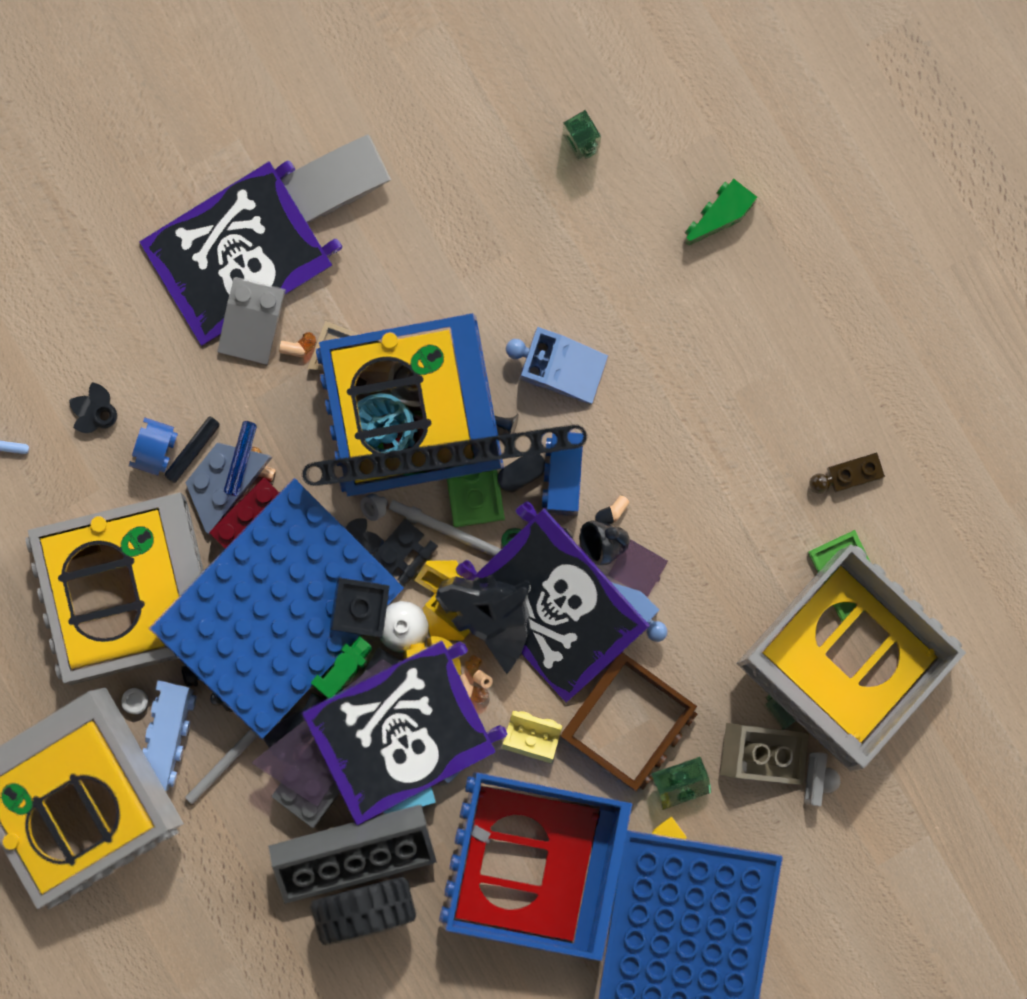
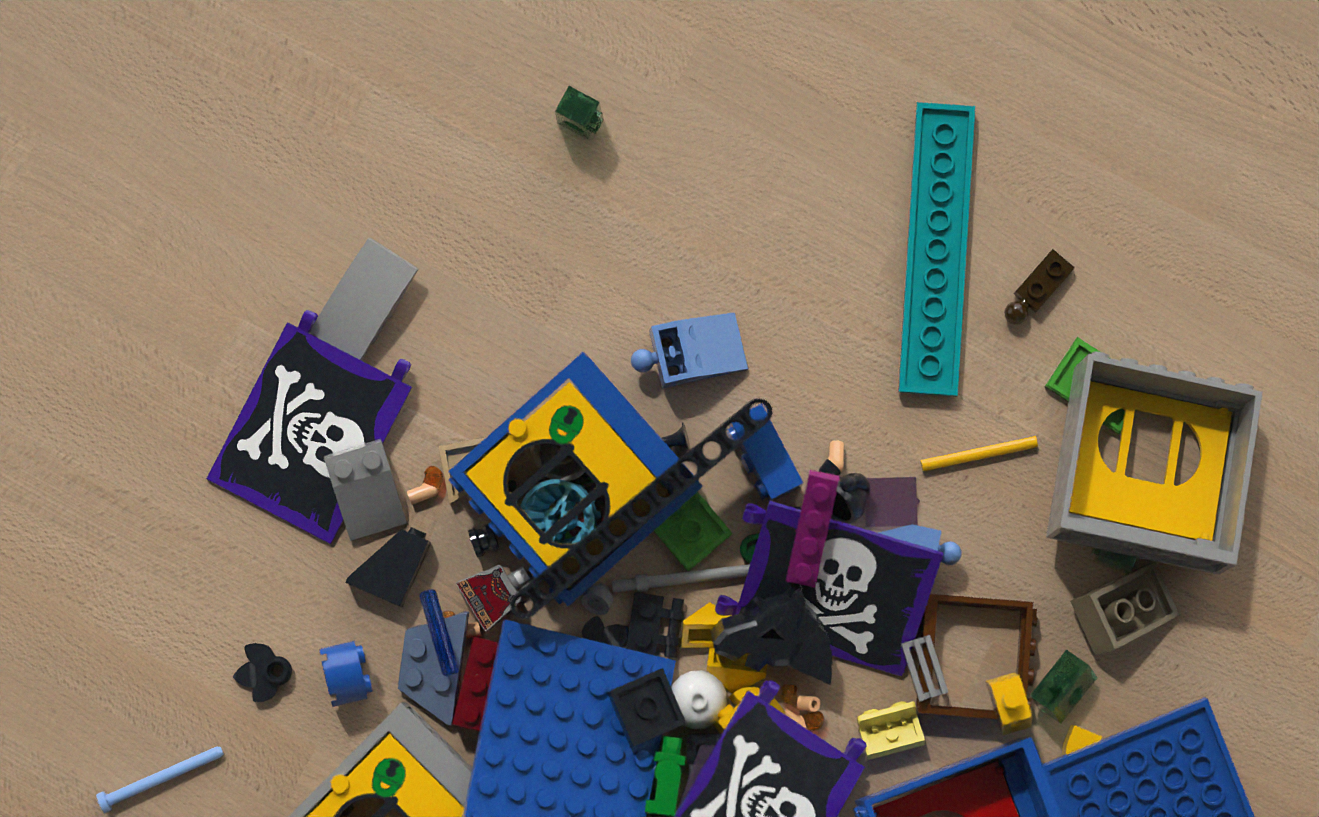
camera: 30 degrees left, 0 degrees up
(192, 449) = (384, 651): black axle -> none
(236, 390) = (392, 567): none -> black slope
(294, 452) = (491, 593): none -> torso
(315, 411) = (483, 540): none -> black wheel
(521, 472) = (721, 479): black tile -> none
(563, 548) = (812, 528): none -> magenta plate
(579, 726) = (935, 663): none -> light grey tile
(631, 770) = (1009, 703): none -> yellow torso
(726, 572) = (979, 453): none -> yellow bar
(727, 210) = (764, 100): green slope -> none
(789, 399) = (936, 249): none -> teal plate
(819, 779) = (1193, 600): light grey tile -> none

